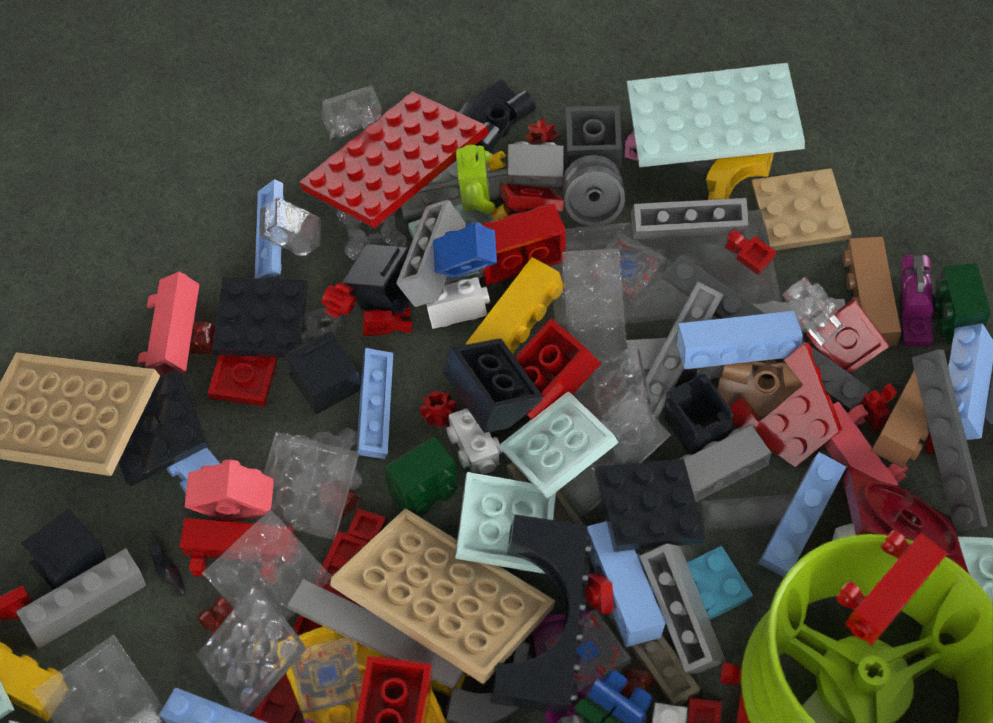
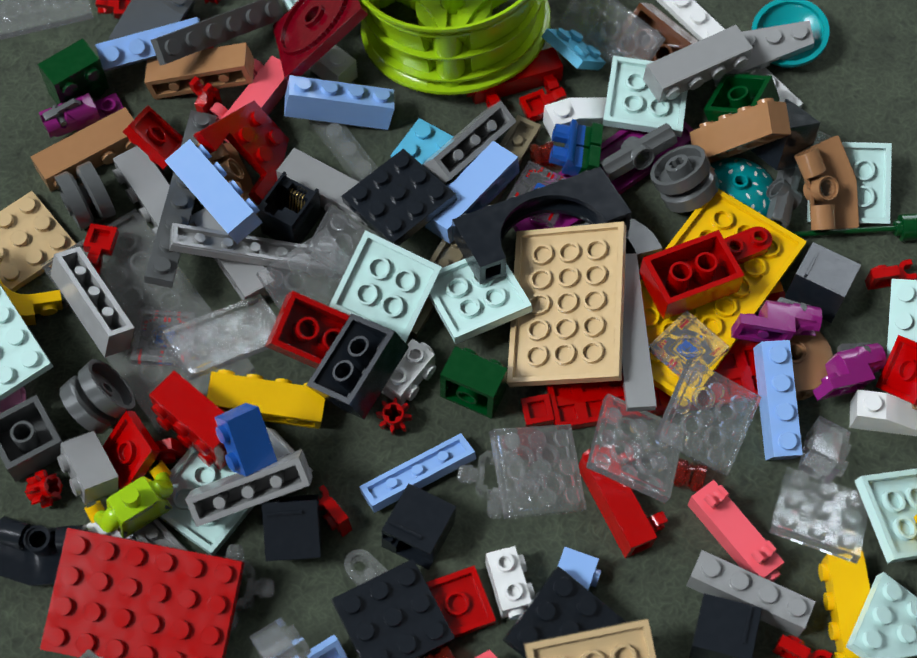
camera: 125 degrees left, 5 degrees up
(140, 621) = (735, 532): none -> coral brick
(166, 569) = (674, 548): black bar -> none
(229, 416) = (508, 582): none -> white brick
(229, 492) = (589, 518): coral brick -> none
(339, 300) = (339, 552): red gear -> none
(599, 593) = (492, 195): red plate -> none
(813, 255) = (82, 197): none -> dark grey wheel
(813, 310) = (151, 154): clear brick -> none

